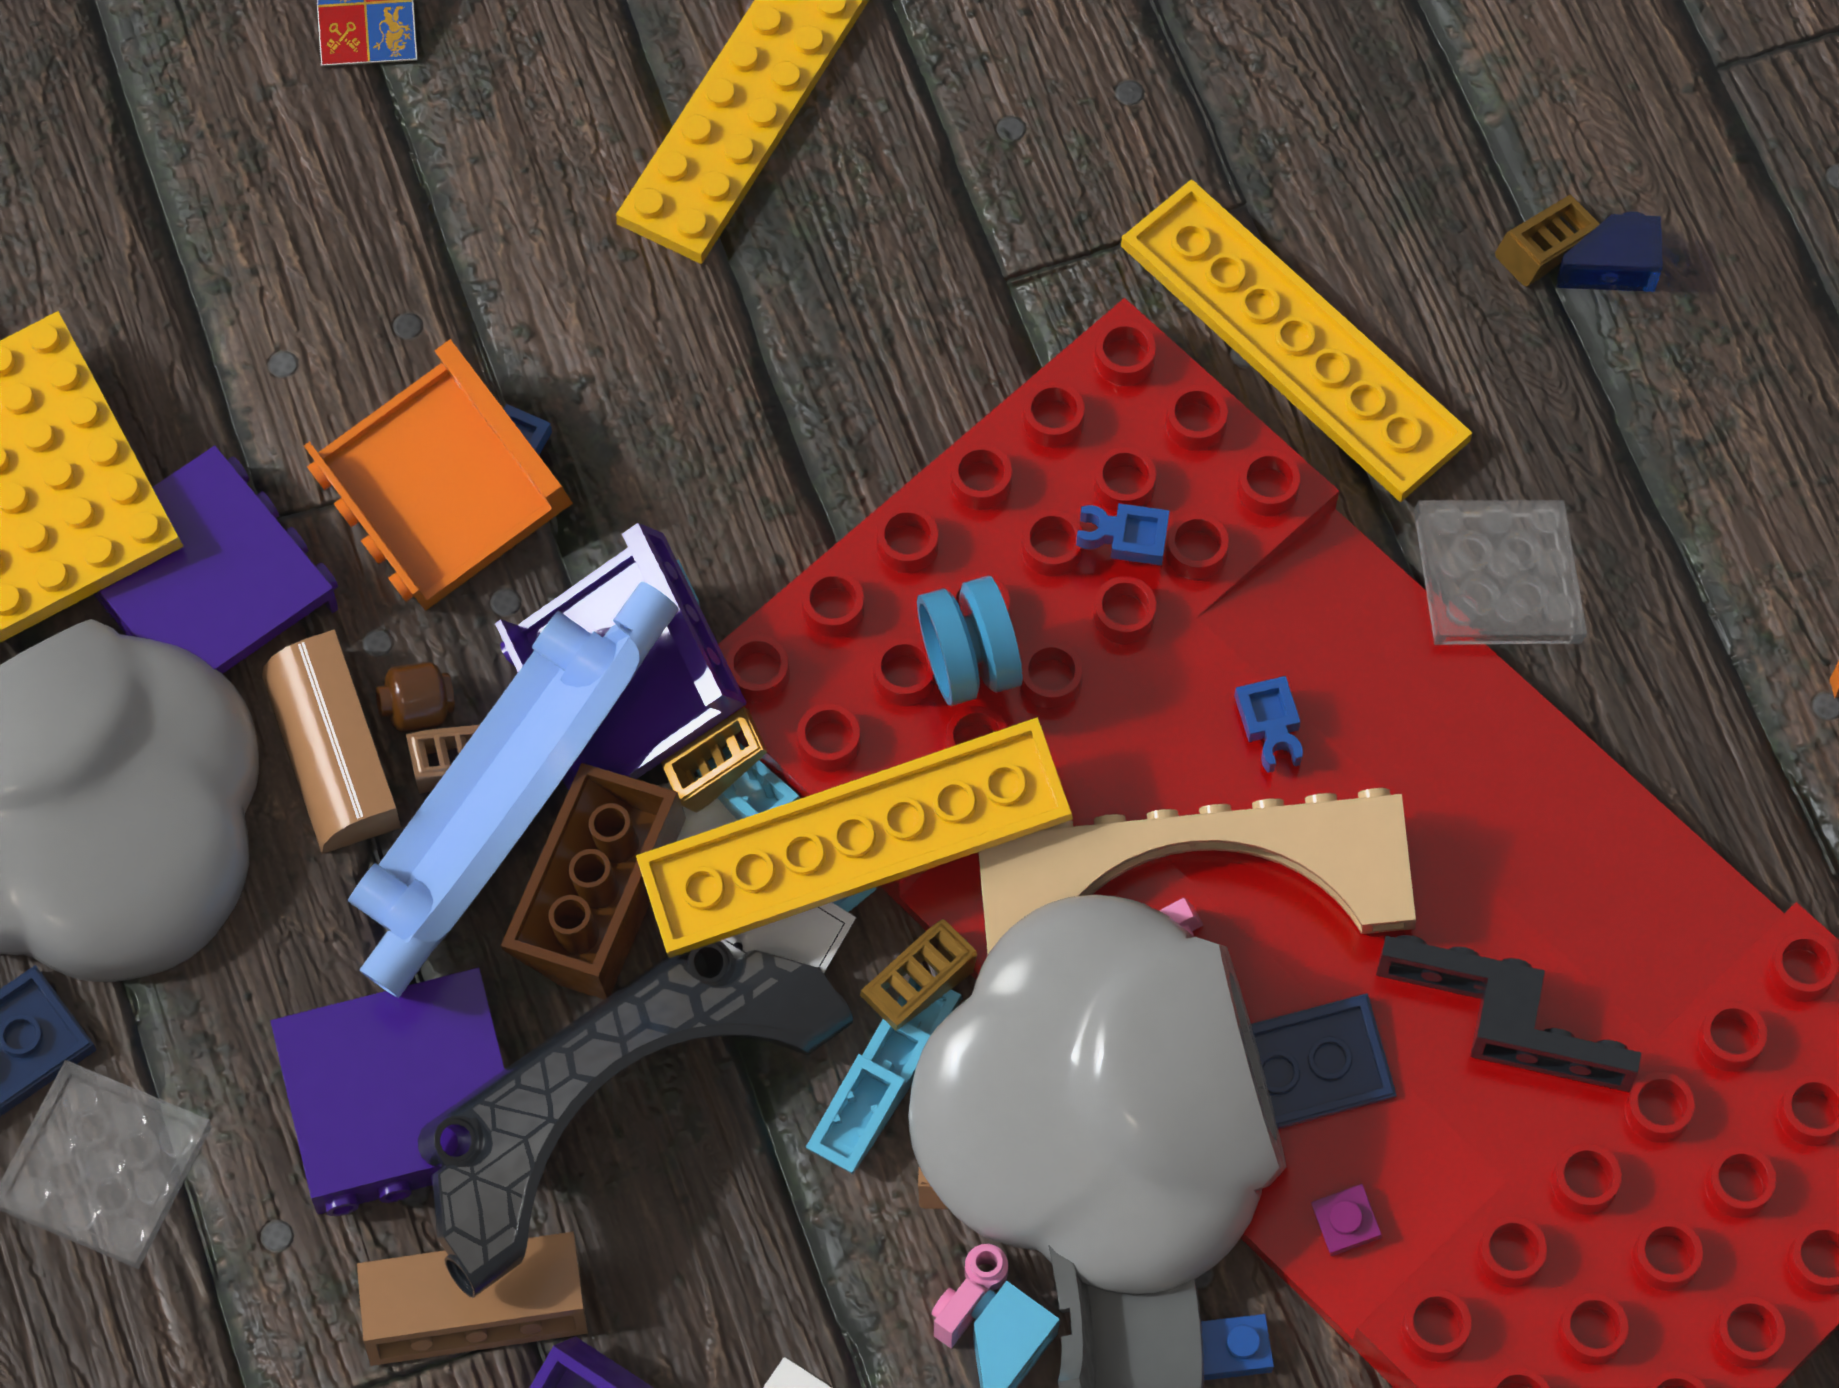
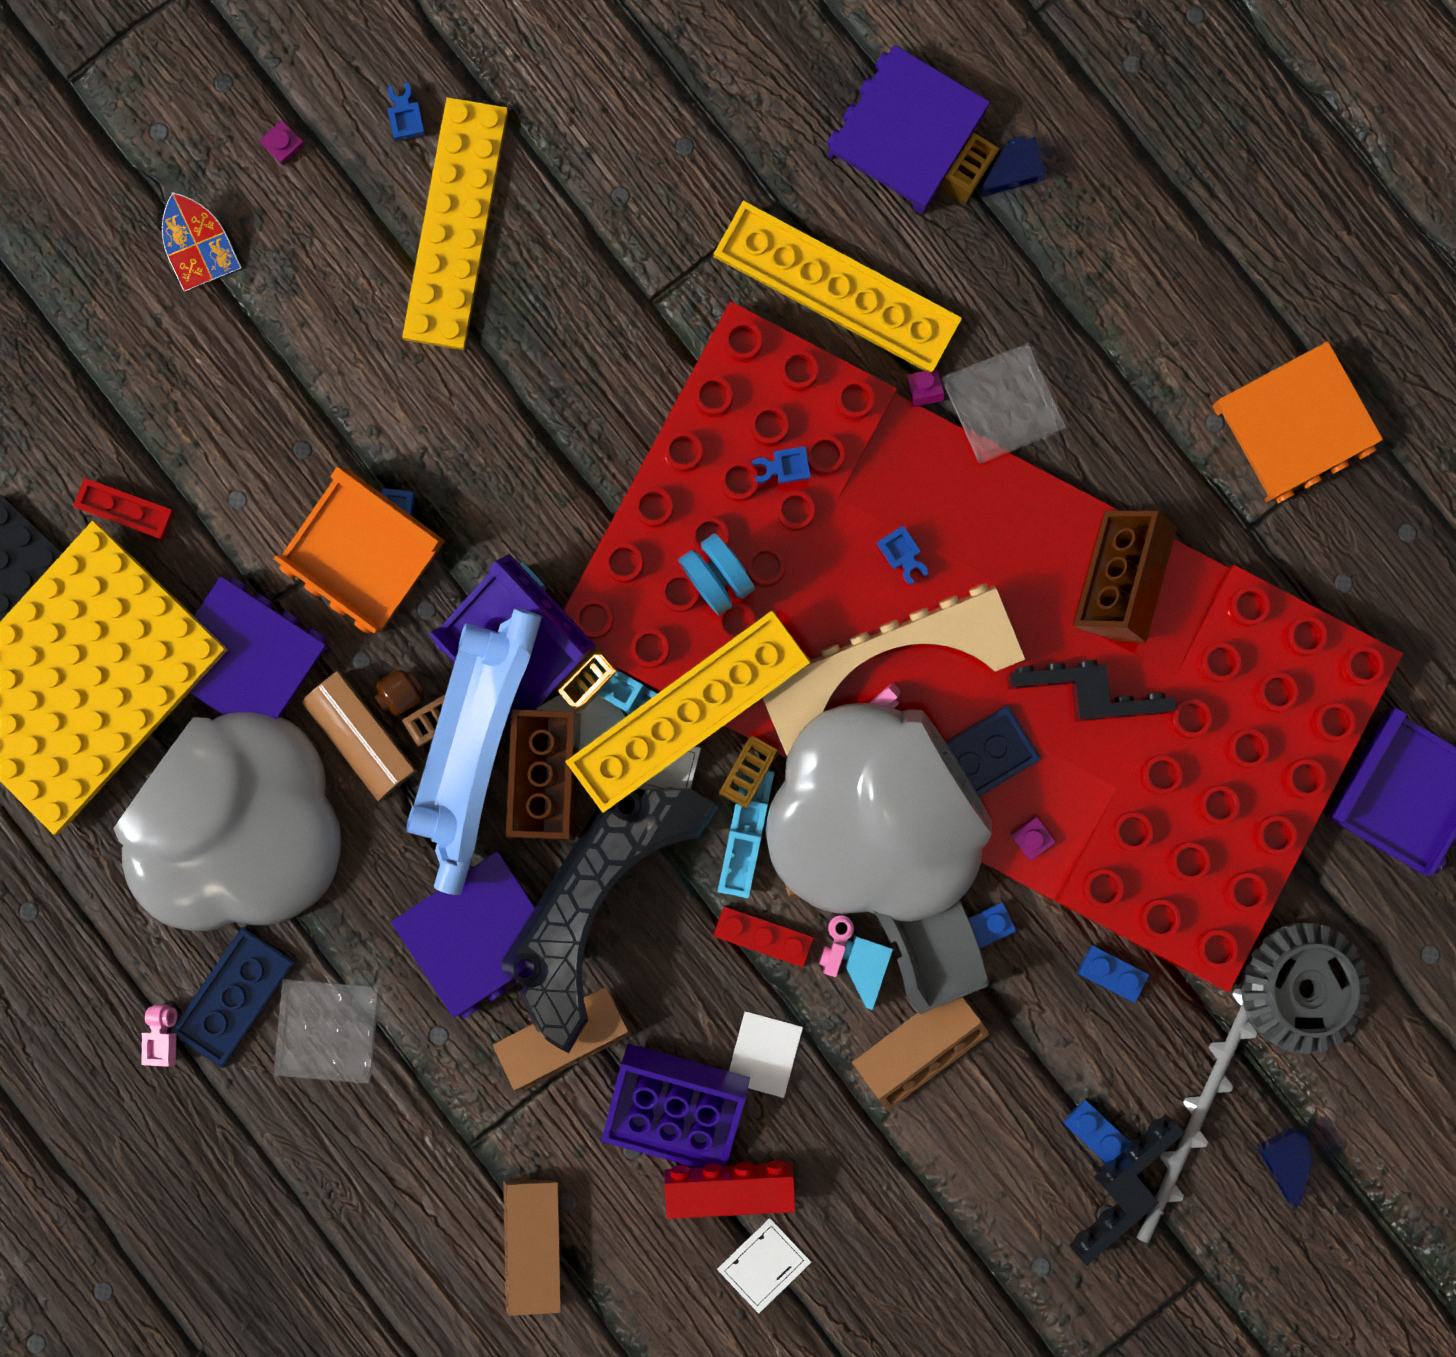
camera: 15 degrees left, 20 degrees up
(110, 320) = (123, 508): none -> red plate
(855, 1246) = (763, 936): none -> red plate
(1384, 515) = (925, 387): none -> magenta plate
(1474, 154) = (908, 126): none -> dark purple panel
(1618, 863) = (1126, 575): none -> reddish brown slope

